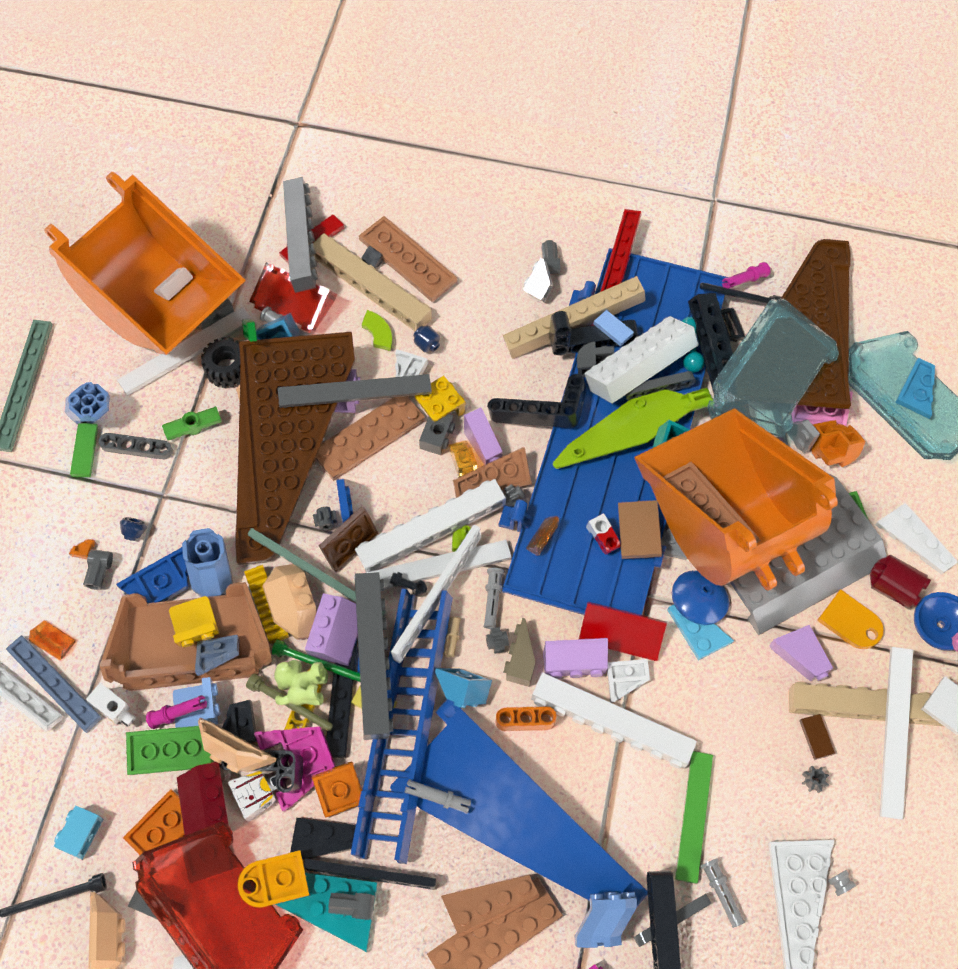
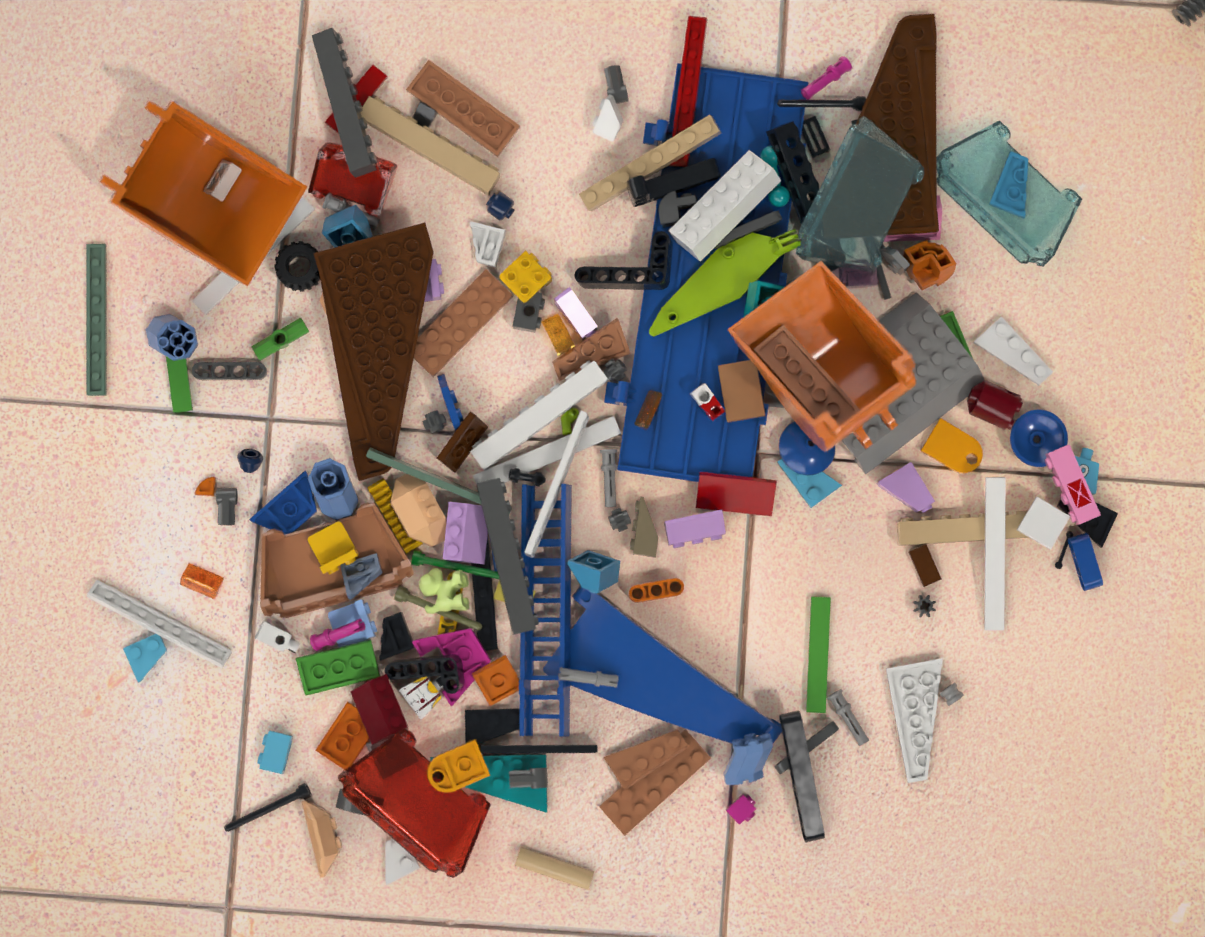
camera: 10 degrees left, 20 degrees up
(54, 684) = (215, 622): sand blue tile -> none
(232, 749) = (396, 662): light nougat wedge -> none
(249, 329) = (318, 233): green tile -> none
(354, 390) = (440, 287): dark grey tile -> none
(379, 329) = (448, 199): lime tile -> none
(452, 636) = (576, 522): tan axle -> none
(613, 328) = (692, 173): light blue tile -> none
(614, 721) = (736, 579): white brick -> none
(626, 676) = (744, 535): white wing -> none

